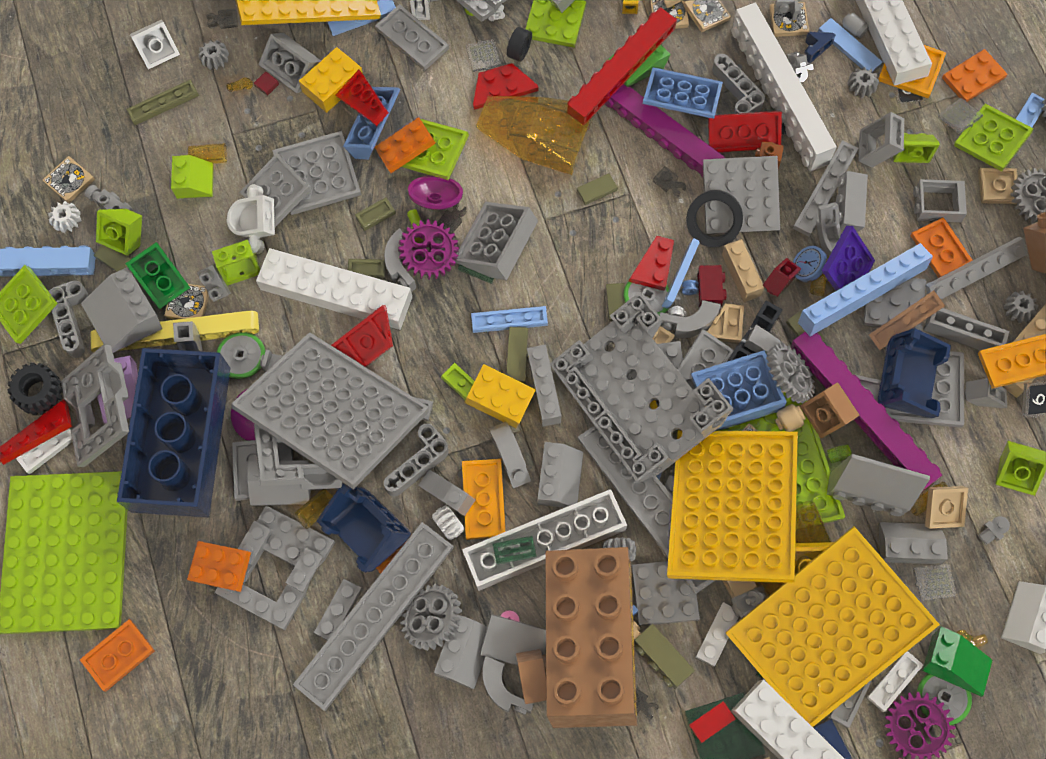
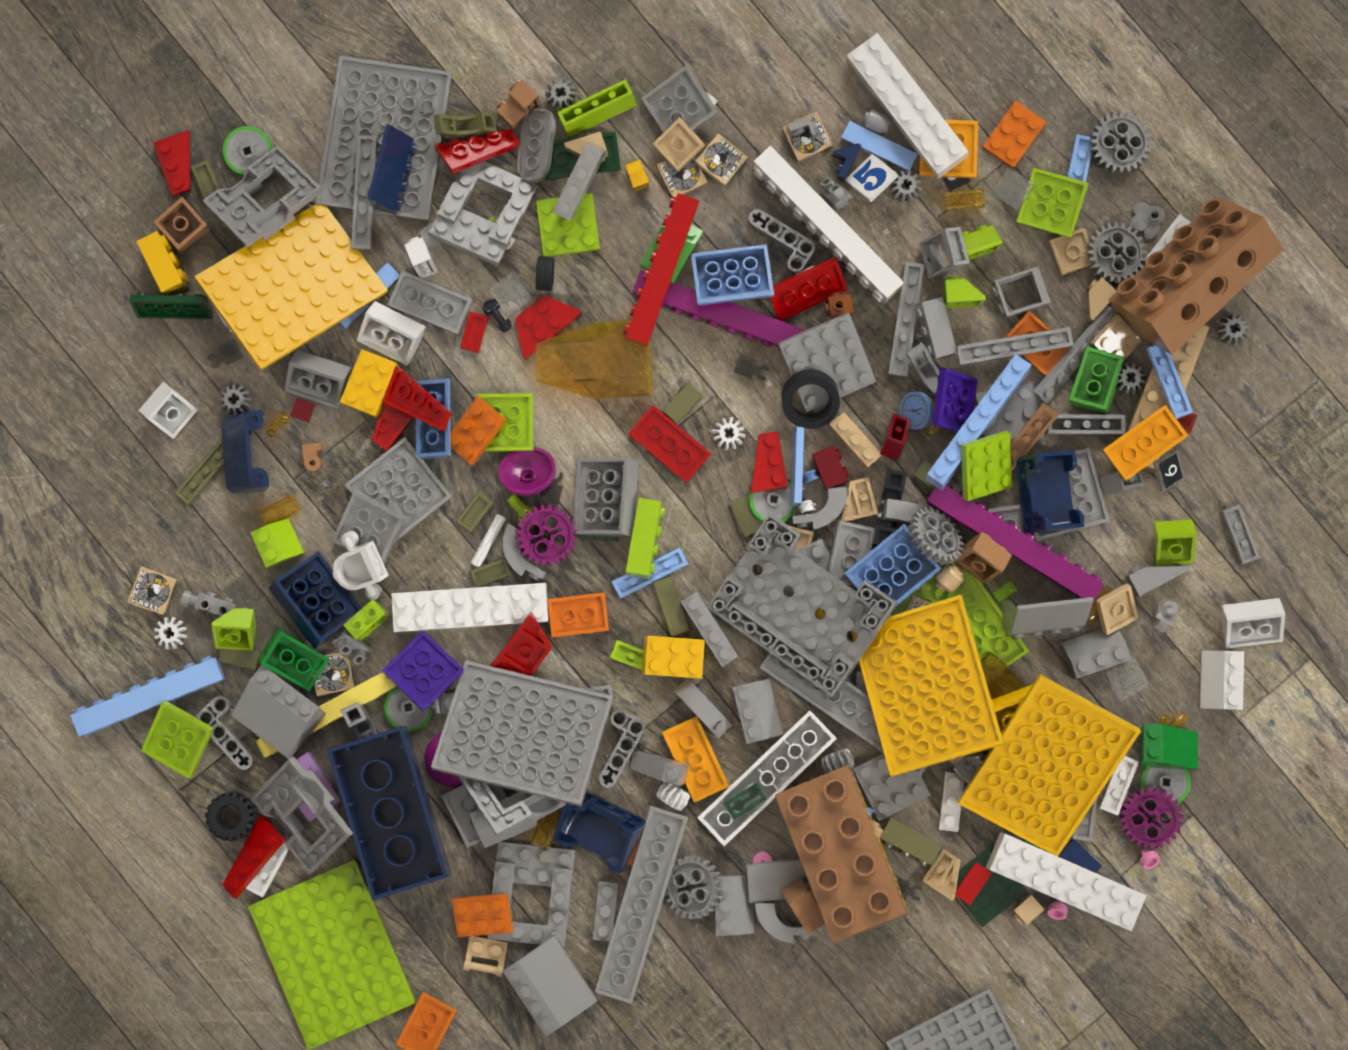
camera: 20 degrees left, 15 degrees up
(190, 109) = (238, 468): none -> dark blue windscreen
(197, 230) = (314, 599): none -> dark blue slope
(208, 602) = (486, 949): none -> tan plate
(251, 660) = (550, 986): none -> light grey slope
(256, 118) = (311, 456): none -> medium nougat leg
(266, 323) = (423, 671): none -> dark purple plate
(335, 119) = (390, 426): none -> red wing
(368, 47) = (390, 333): none -> white slope
(376, 240) = (488, 540): none -> white axle
(428, 330) = (578, 615): none -> orange plate
(439, 73) = (474, 332): none -> red tile
(462, 58) = (492, 307): none -> black bar
(516, 284) = (644, 538): none -> lime brick
(572, 217) = (669, 444): none -> red plate
(631, 220) = (726, 426): none -> white gear
(686, 702) = (944, 874): none -> tan wing
(835, 65) = (871, 178): none -> white tile
(860, 328) = (986, 465): none -> lime plate
(886, 180) = (961, 293): none -> lime slope
(911, 237) = (1014, 345): none -> light grey plate
(913, 109) = (964, 199): none -> clear yellow brick
(989, 294) = (1096, 381): none -> bright green slope
(991, 492) = (1148, 578): none -> light grey slope
(1012, 227) = (1098, 297): none -> tan slope
(1018, 270) = (1116, 338): none -> tan plate

